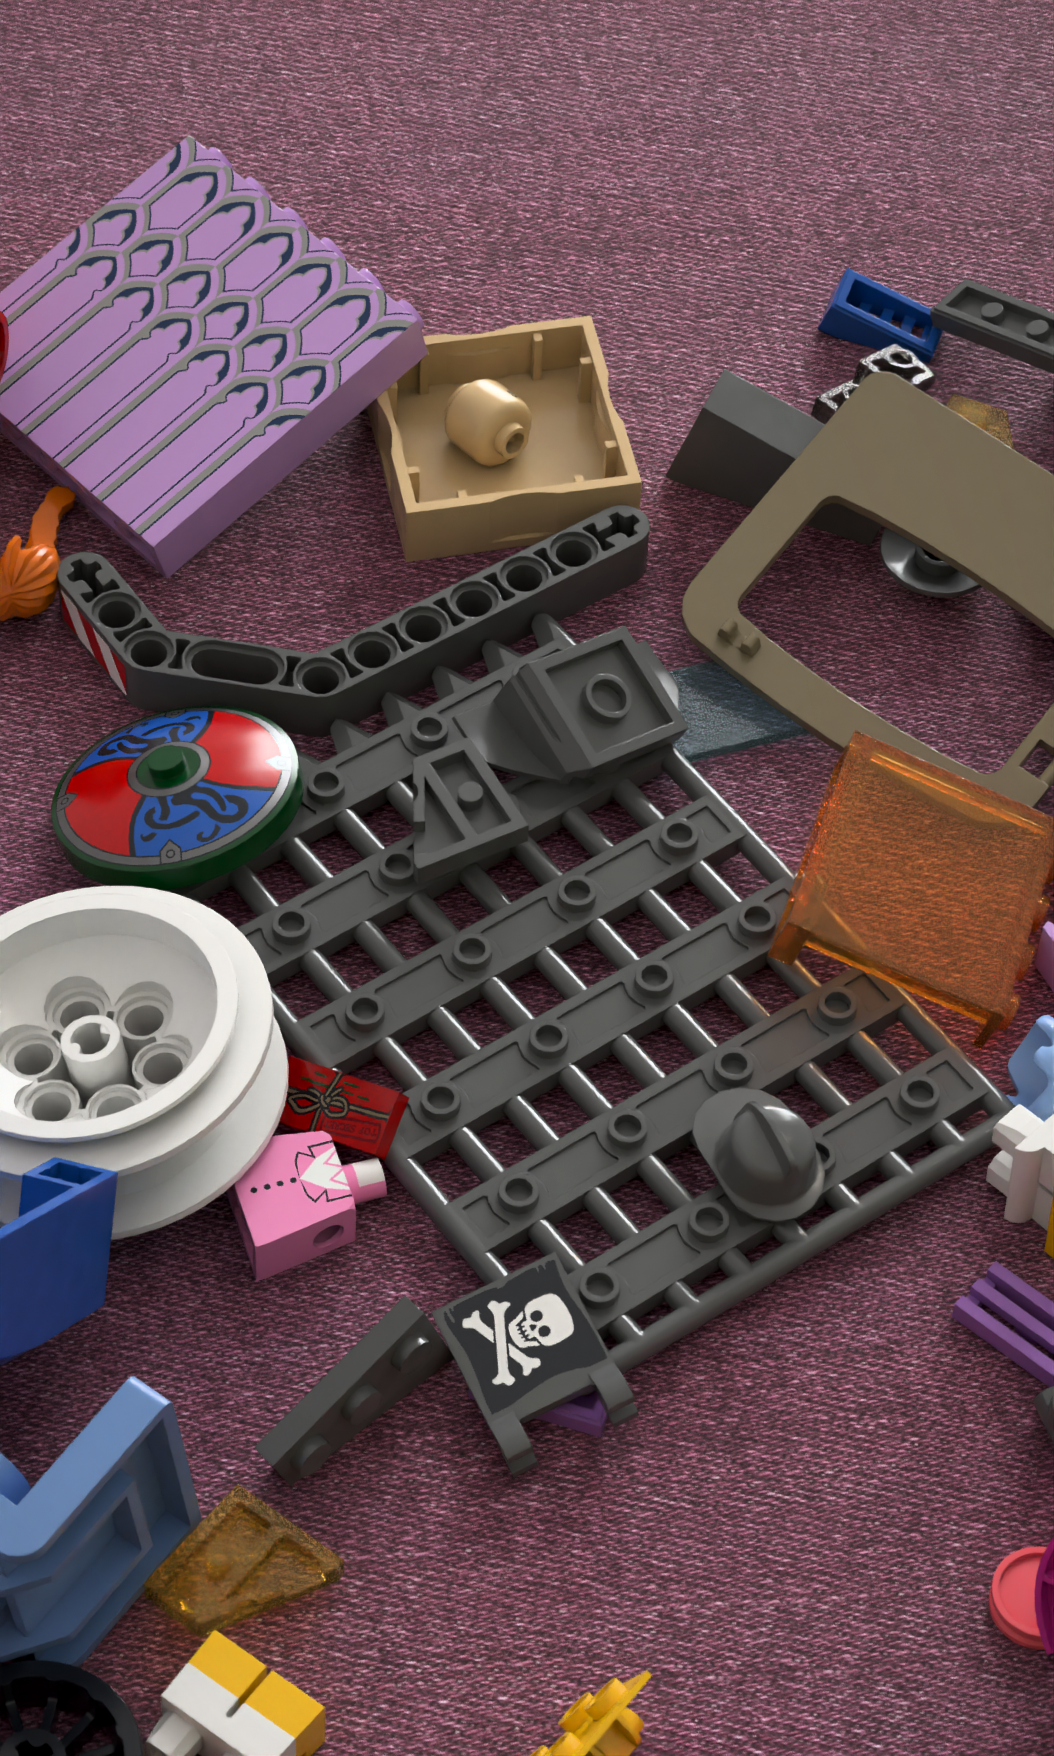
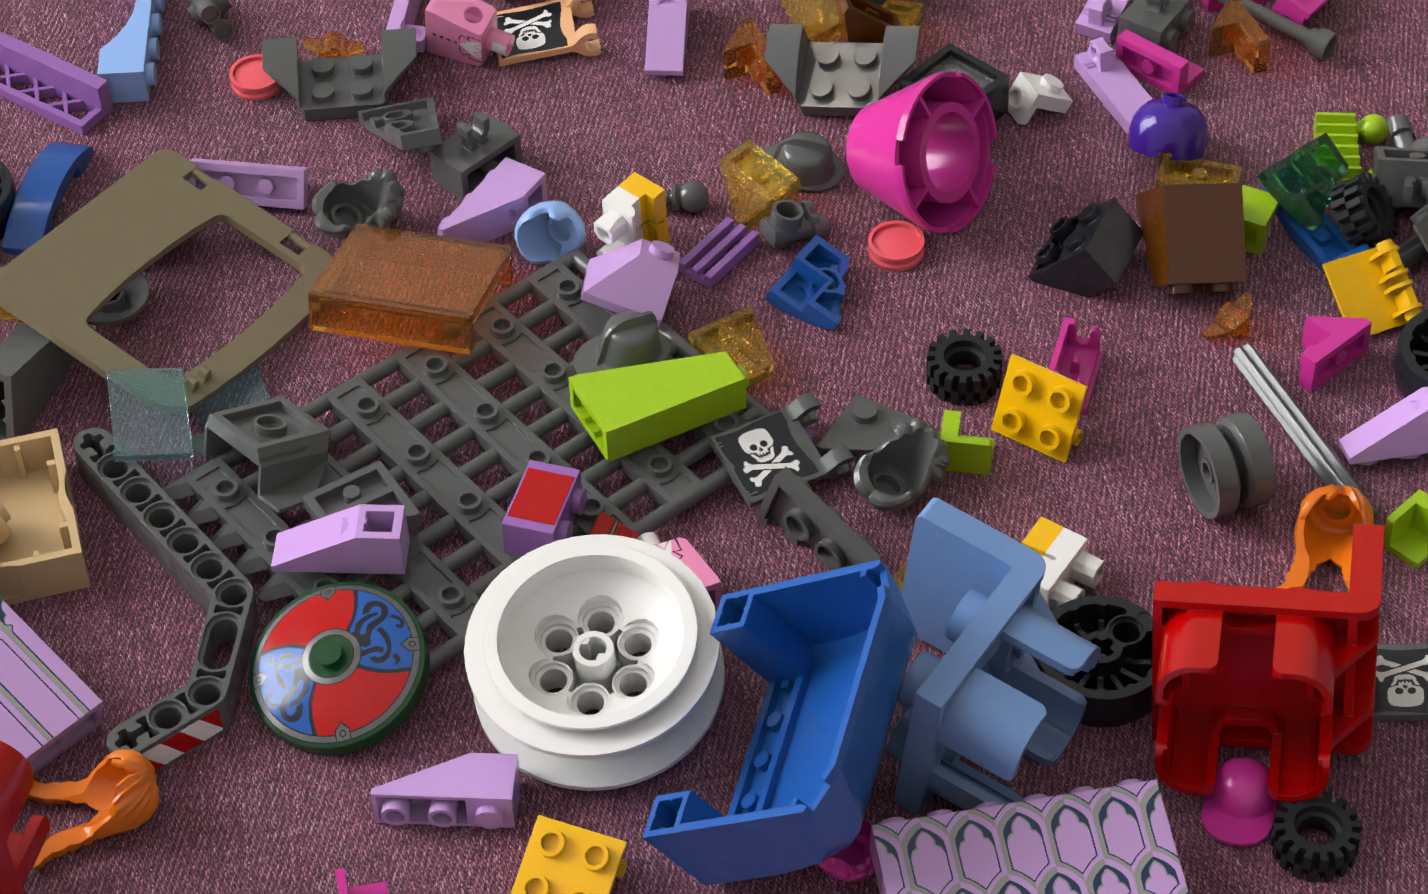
camera: 90 degrees left, 5 degrees down
(366, 790) = (349, 541): none -> lavender slope
(406, 1017) = (543, 507): none -> brick
(468, 1519) = (902, 466): none -> dark grey hair
(537, 1639) = (966, 452): none -> lime panel
(590, 1515) = (863, 427): none -> dark grey wing
(619, 1169) = (656, 400): none -> lime slope
(662, 578) = (149, 414): none -> clear light blue piece
(714, 1698) = (961, 383): none -> black tyre
(789, 1328) = (740, 340): none -> clear yellow wing
(909, 1169) = (633, 278): none -> lavender slope
(938, 1457) = (813, 285): none -> blue slope

